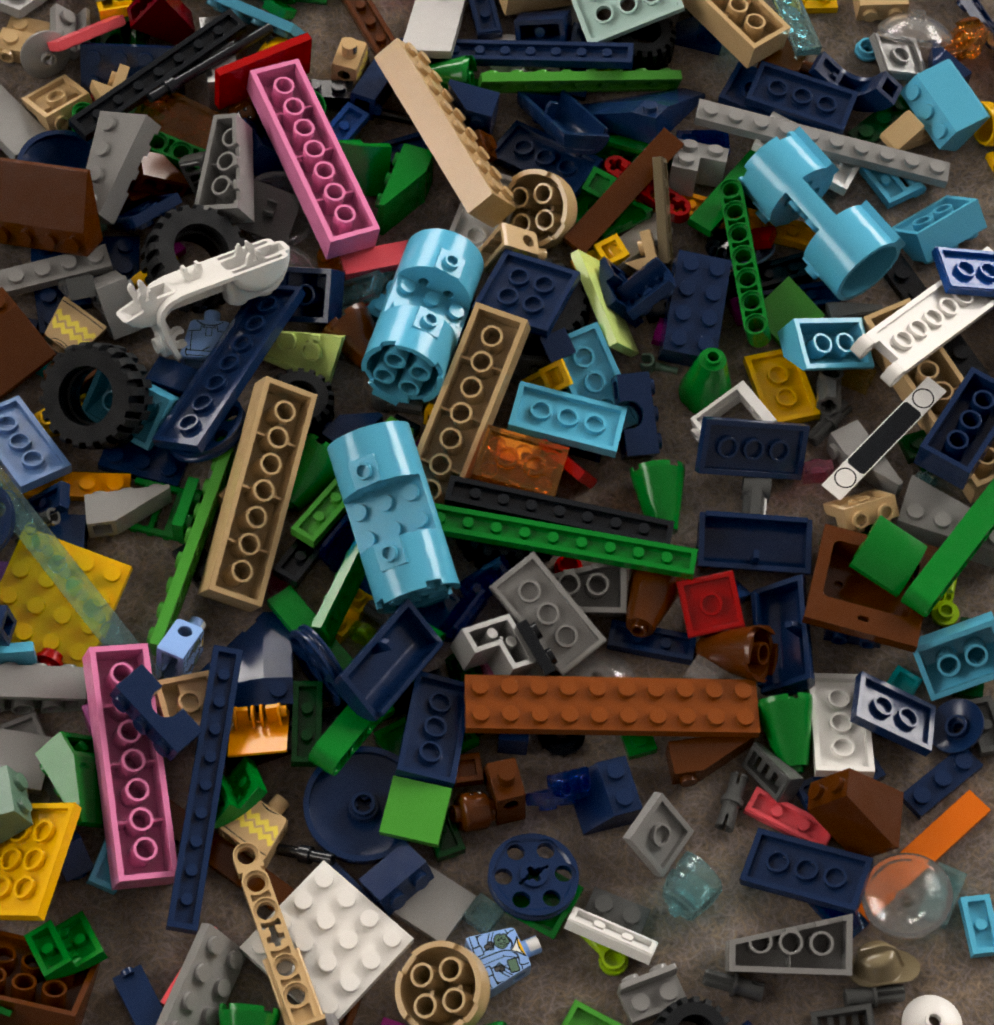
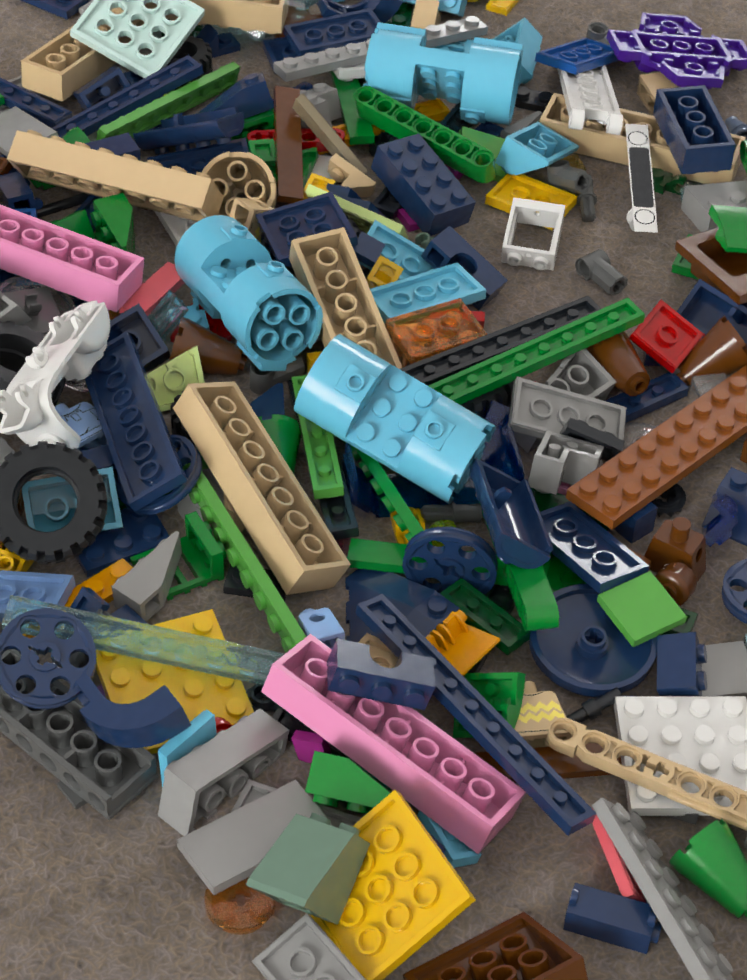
camera: 40 degrees left, 15 degrees down
(65, 947) = (495, 925): green slope -> none
(638, 746) = (717, 466): green plate -> none
(646, 288) = (382, 182): dark blue bracket -> none
(660, 489) = (531, 296): green cone -> none
(705, 380) = (484, 218): green cone -> none
(752, 448) = (569, 233): dark blue plate -> none
(754, 542) = (643, 282): dark blue container -> none
(817, 471) = (618, 229): clear pink plate -> none
(846, 440) = (618, 201): light grey slope -> none
(862, 509) = (678, 225): tan plate -> none

